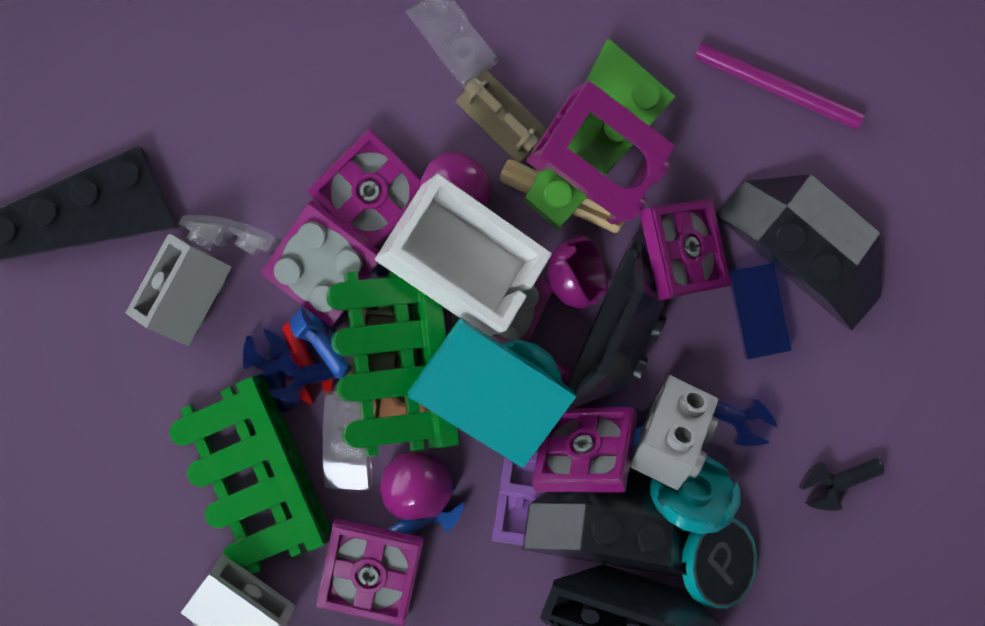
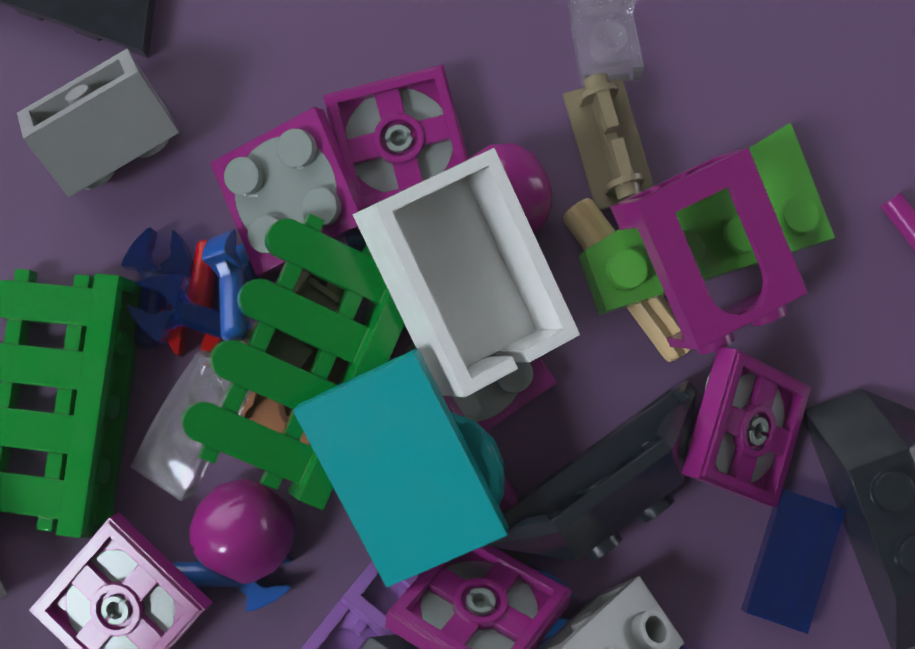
camera: 30 degrees right, 5 degrees down
(219, 231) = (185, 78): clear slope -> none
(577, 273) = (594, 381): magenta hair -> none

